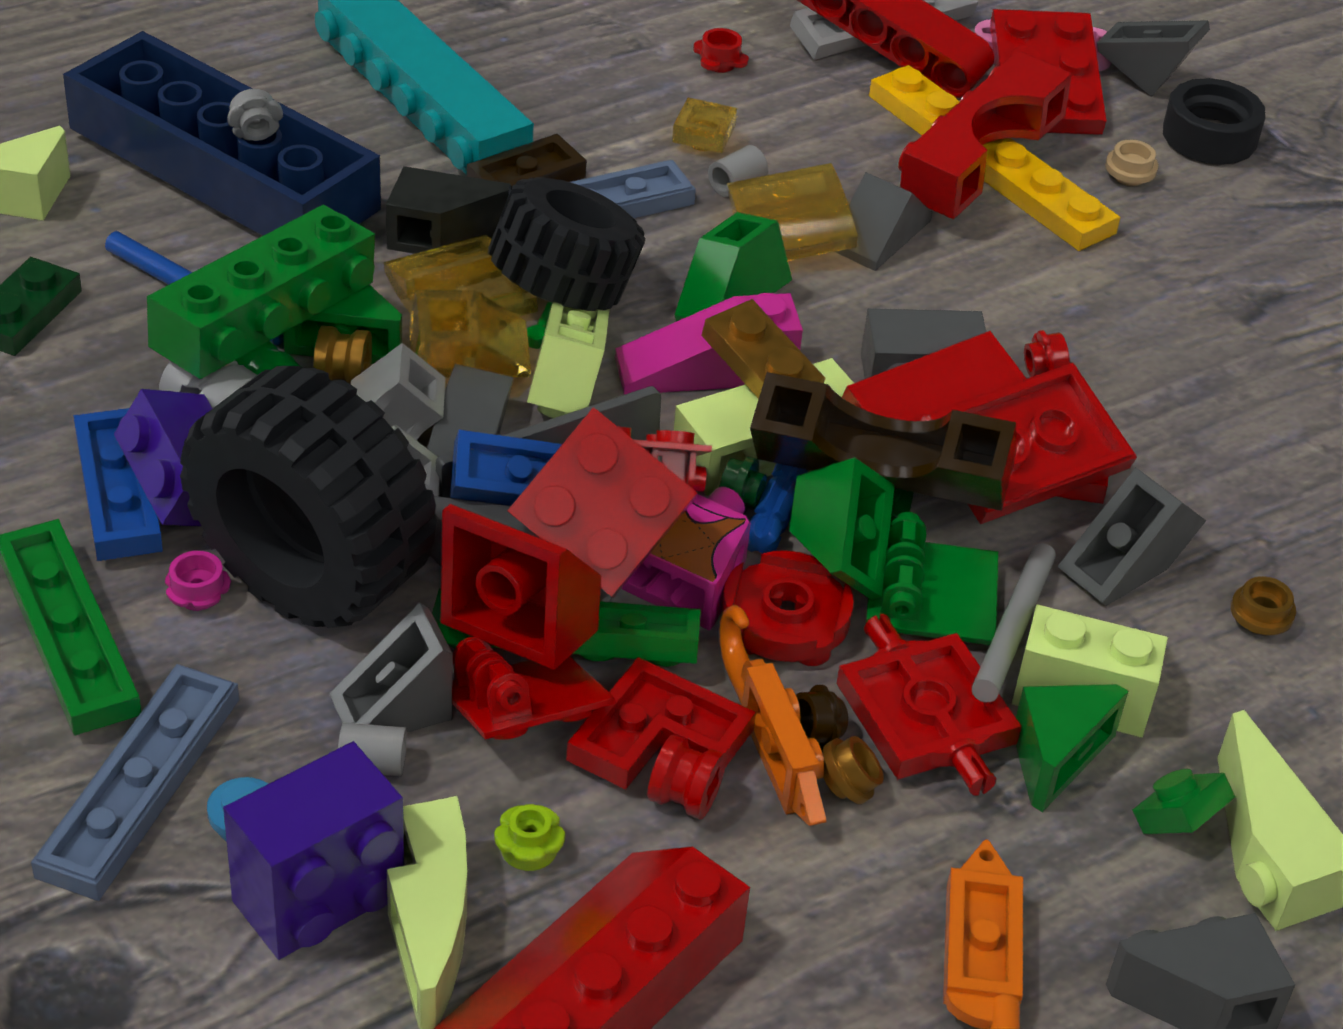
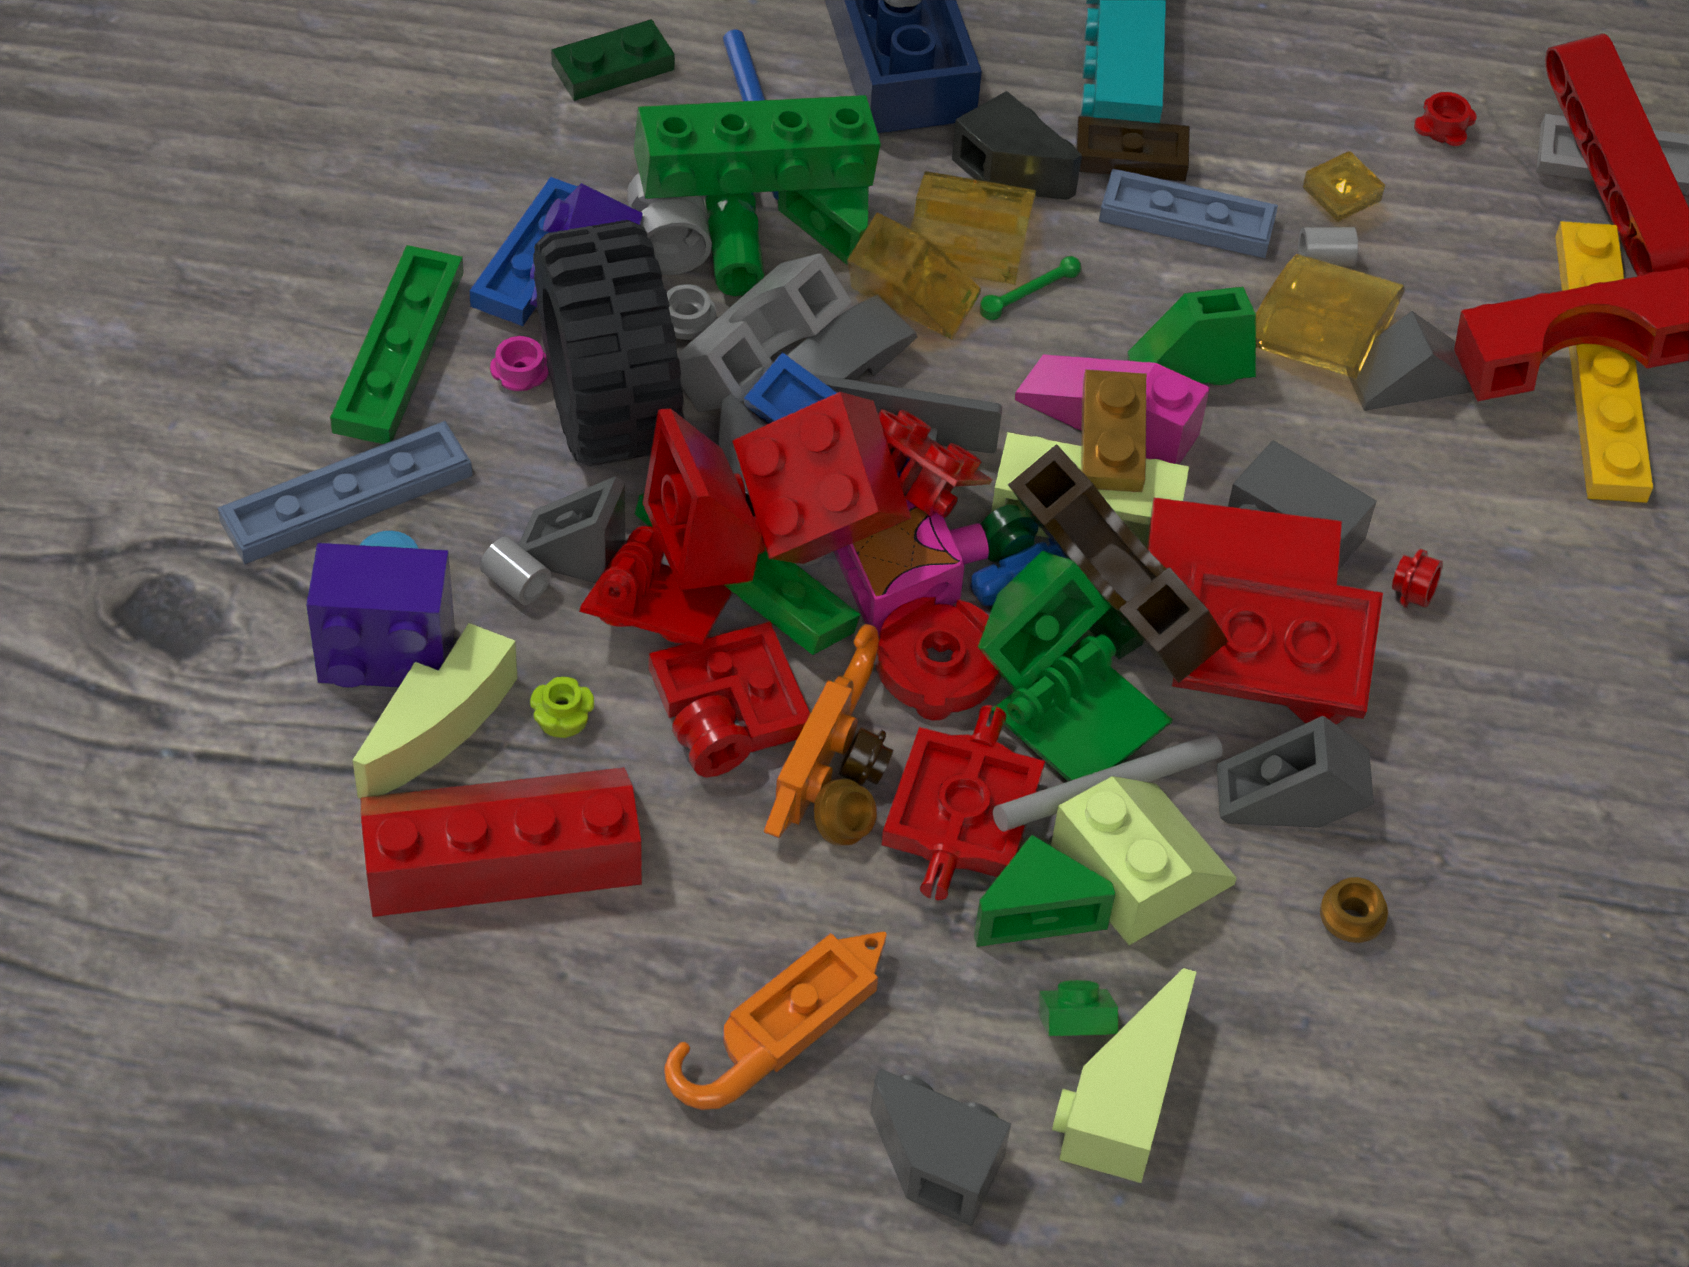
camera: 40 degrees right, 10 degrees up
(342, 354) = (799, 235): pearl gold wheel -> none
(566, 244) = (1069, 236): black tyre -> none
(568, 360) = (985, 336): yellowish green slope -> none

